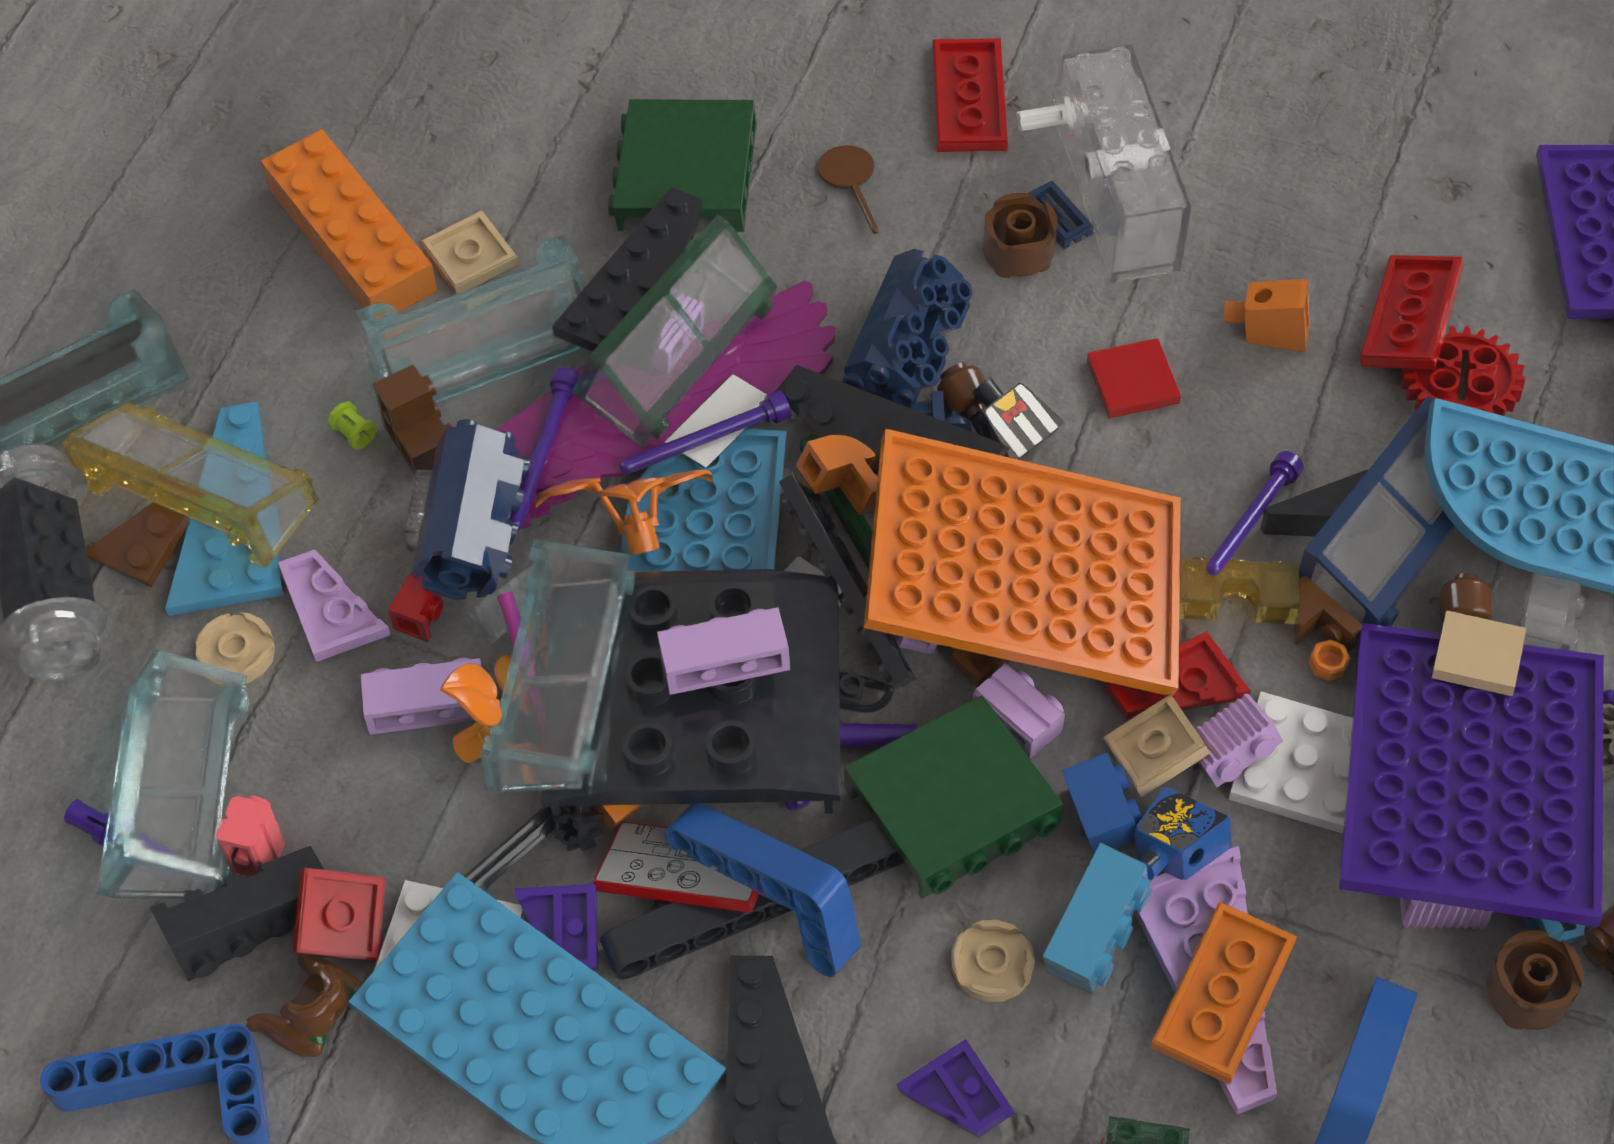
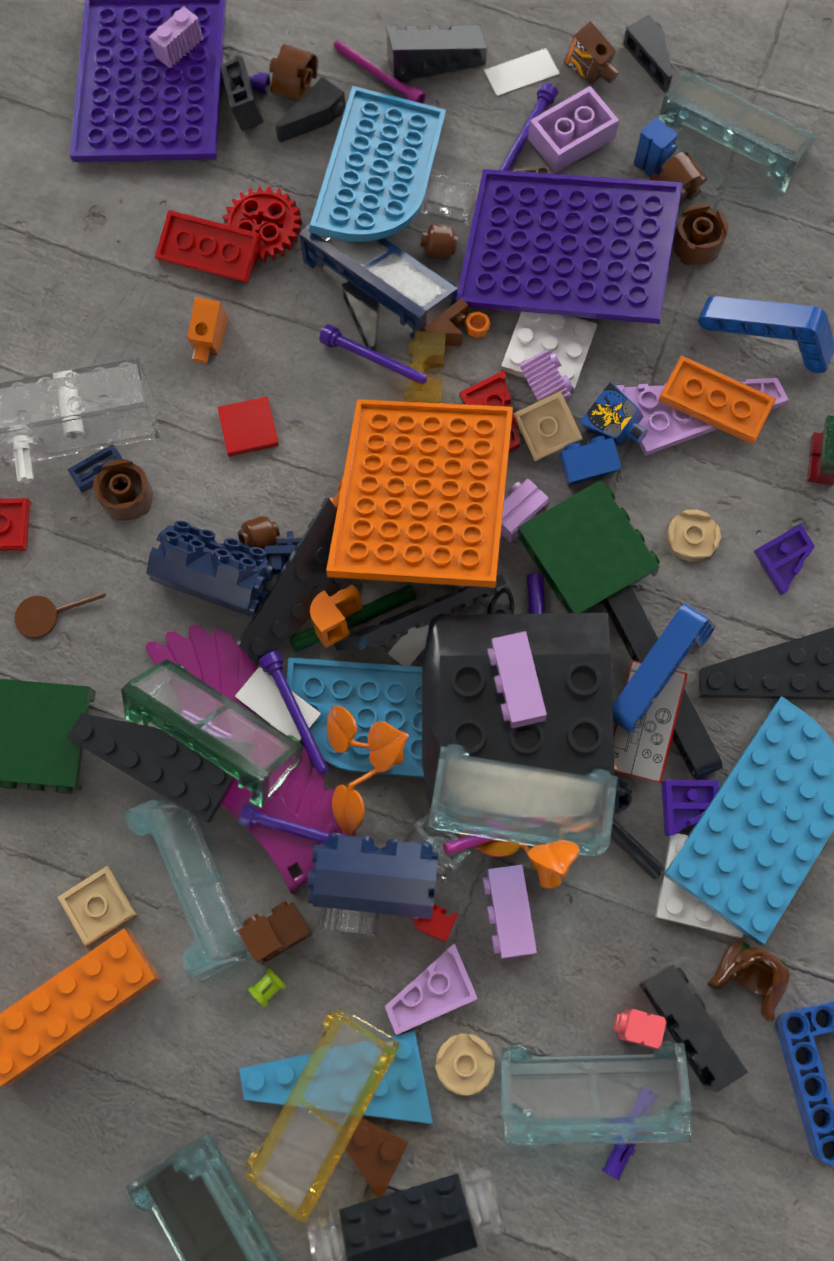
camera: 90 degrees left, 15 degrees up
(339, 915) = (694, 958): red tile -> none
(1014, 418) = (291, 501): torso -> none
(1098, 919) = (682, 463): dark azure brick -> none
(1479, 653) = (485, 233): tan tile -> none

